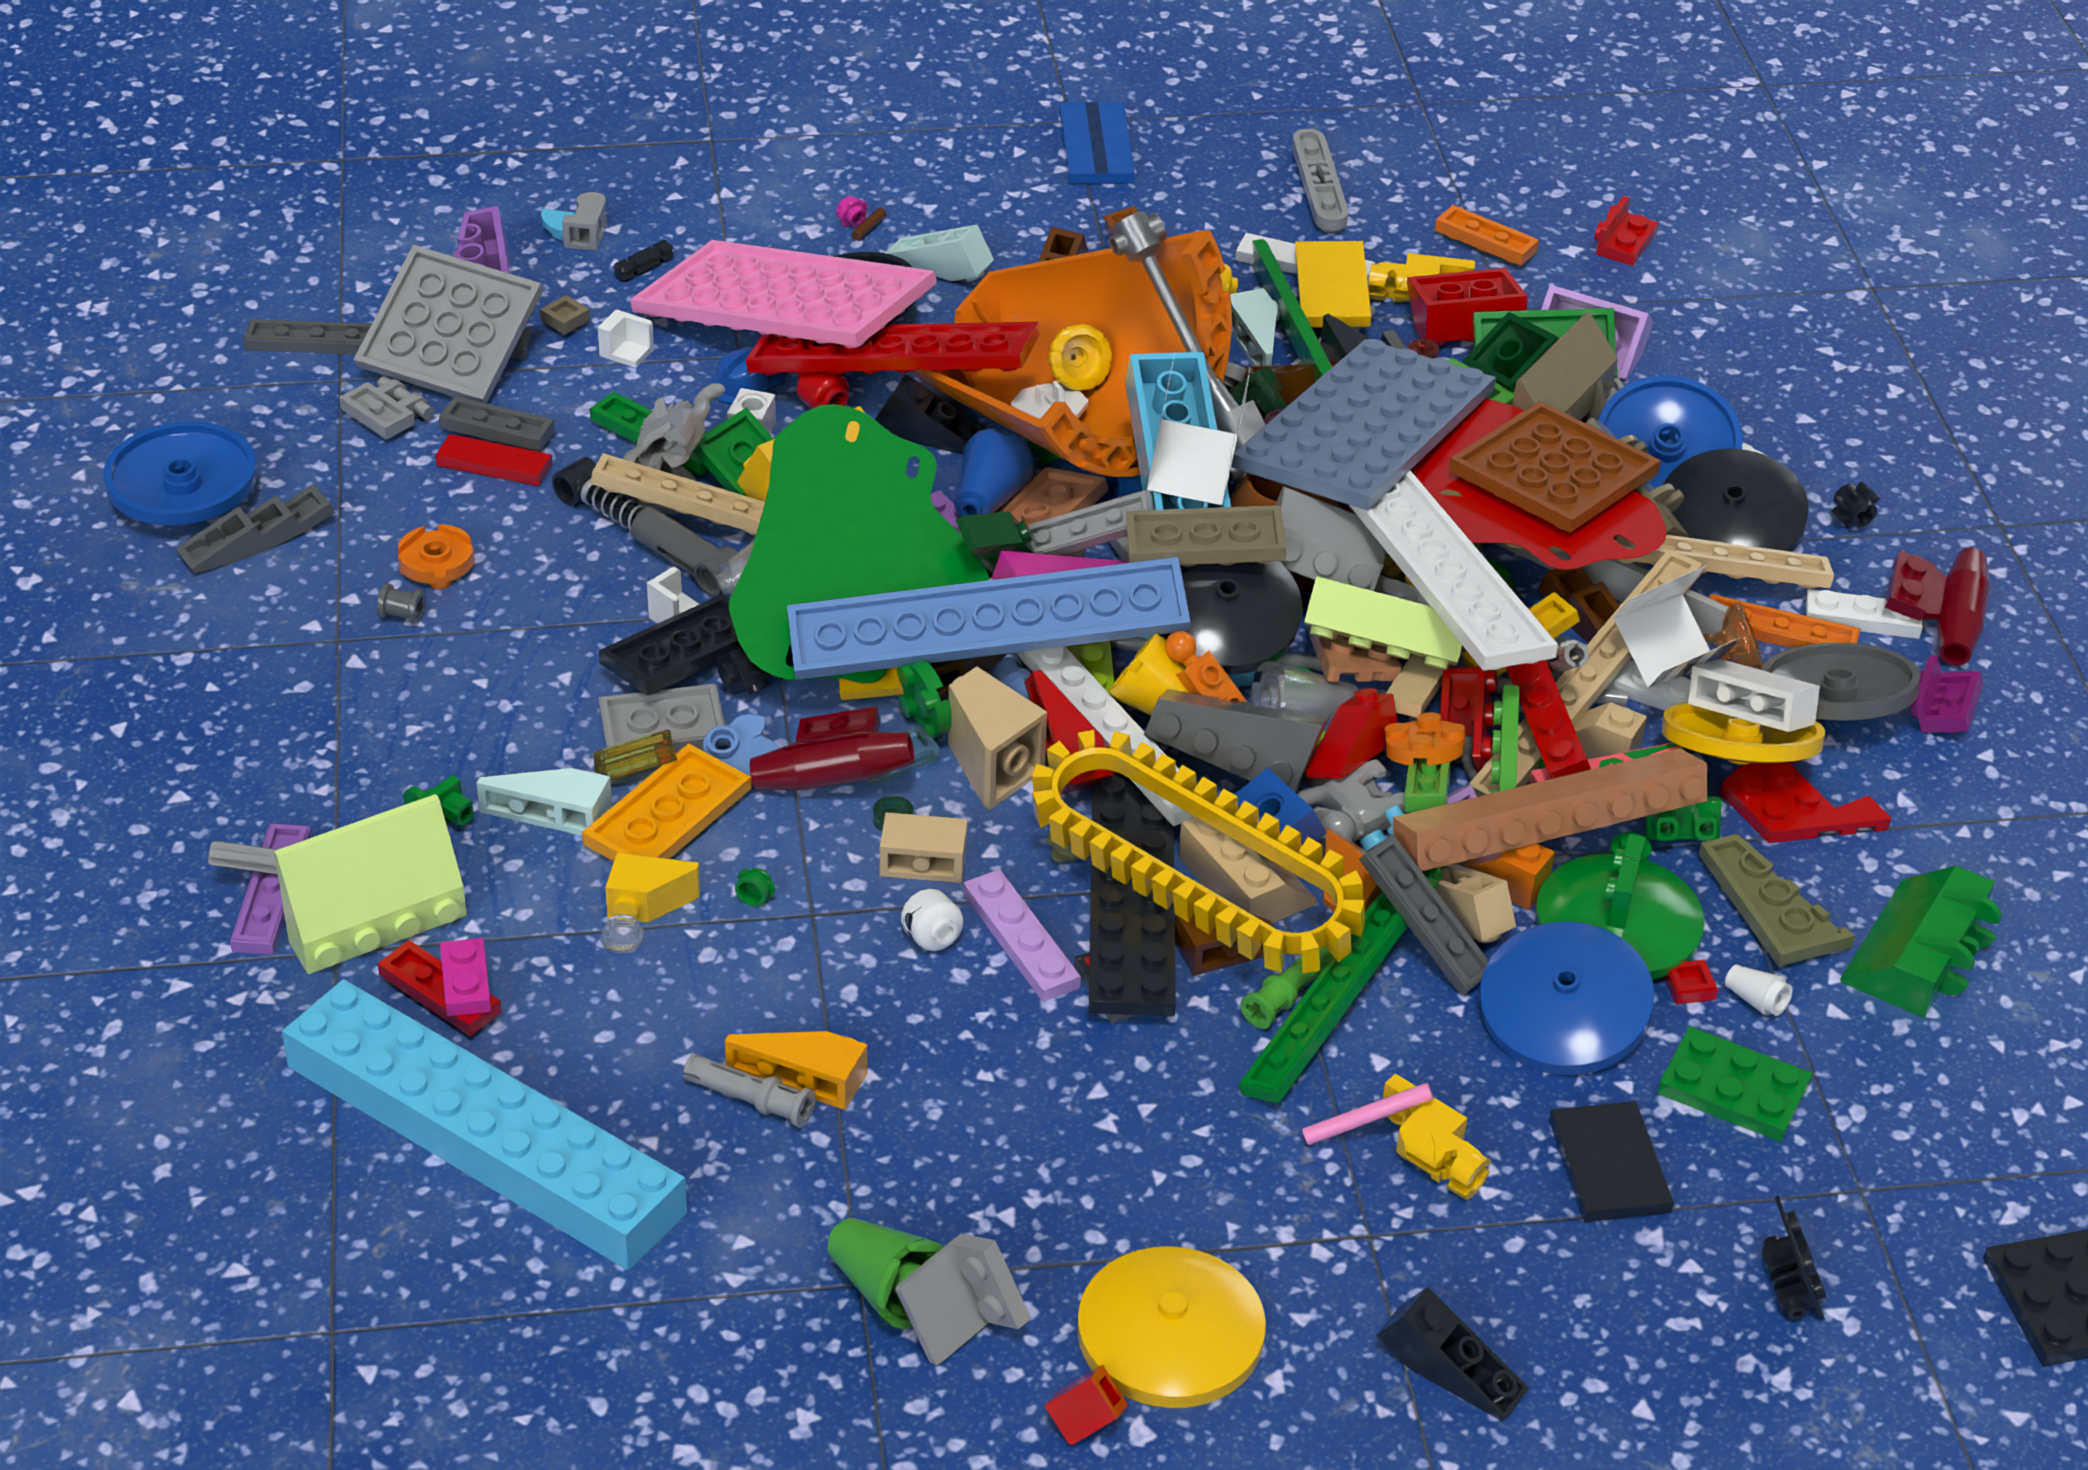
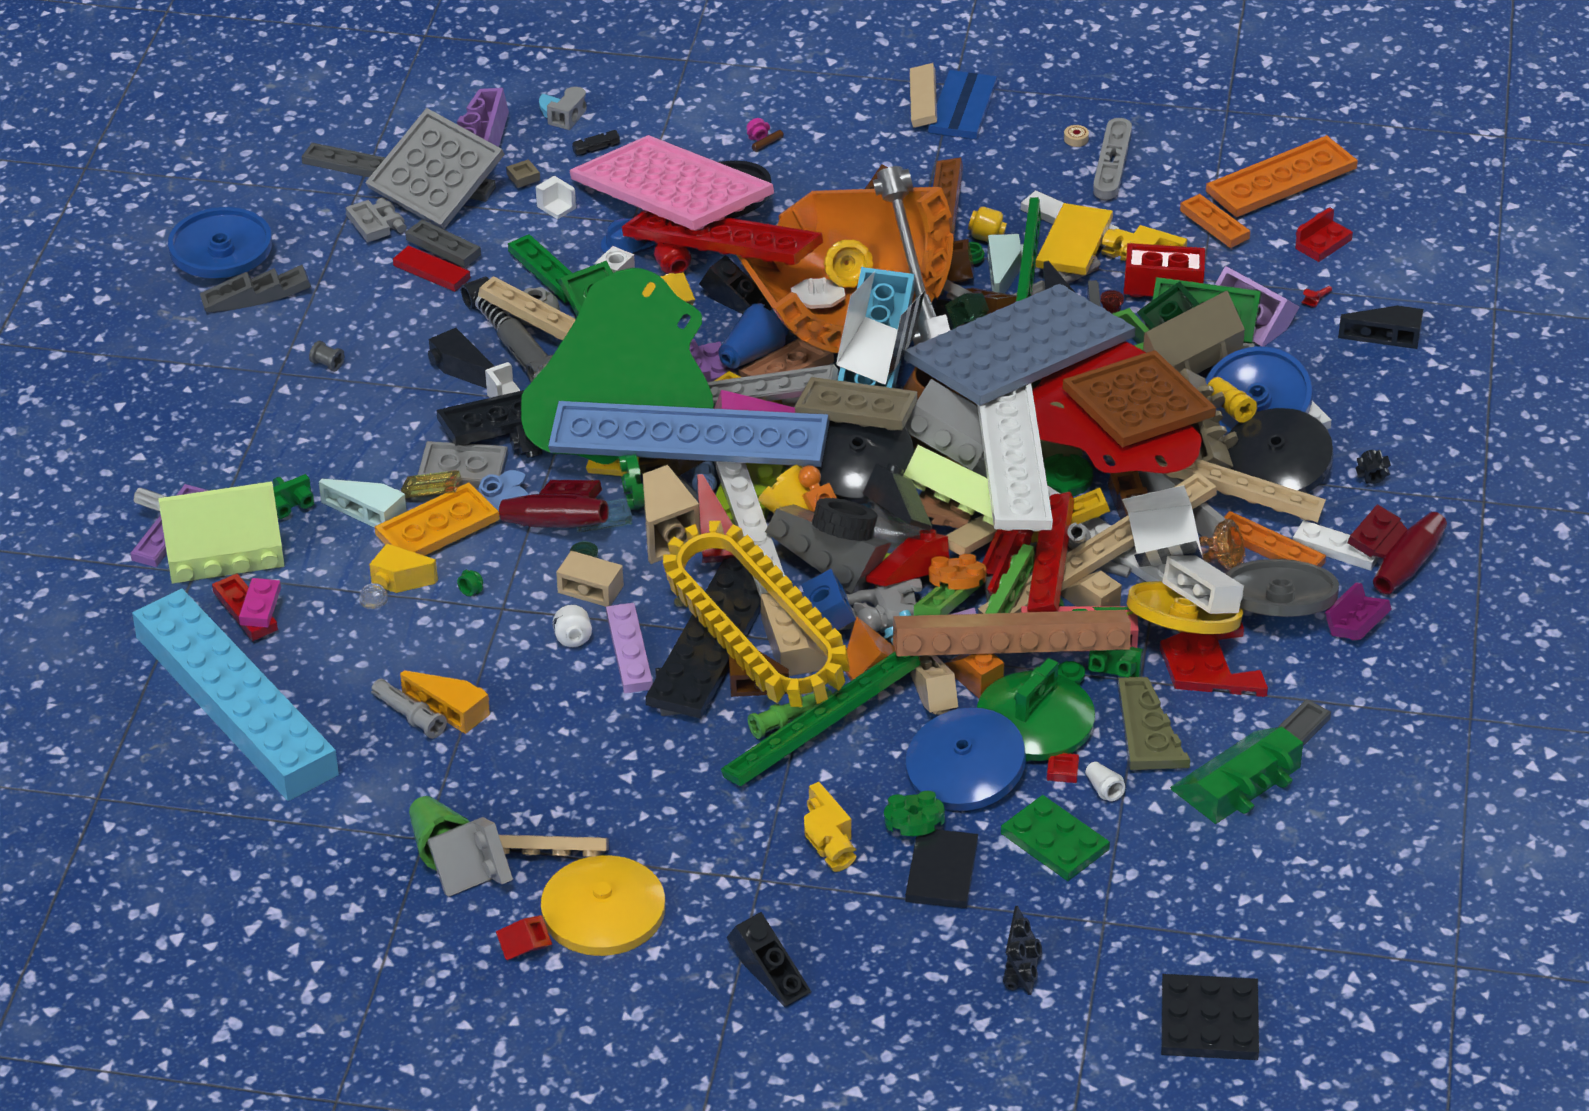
camera: 20 degrees right, 0 degrees up
(435, 555) = (374, 327): orange plate -> none
(595, 574) = (458, 357): none -> black slope
(673, 431) = (547, 268): light grey animal -> none
(950, 253) = (806, 171): light aqua slope -> none
(992, 533) = (718, 376): dark green slope -> none
(1044, 138) = (923, 95): none -> tan tile
(1072, 1247) = (559, 844): none -> tan plate
(1257, 159) = (1076, 135): none -> tan tile
(1262, 695) = (844, 519): none -> black tyre
(1309, 648) = (897, 495): none -> black slope
(1368, 1113) = (790, 803): bright pink bar -> none
(1426, 913) = (892, 683): dark grey tile -> none
(1535, 169) = (1281, 176): none -> orange plate
(1538, 1091) = (914, 813): none -> green plate
(1655, 307) = (1312, 297): none -> red hand
(1670, 451) = (1237, 402): none -> yellow axle
(1768, 328) = (1386, 326): none -> black slope
(1959, 848) = (1306, 720): none -> dark grey tile

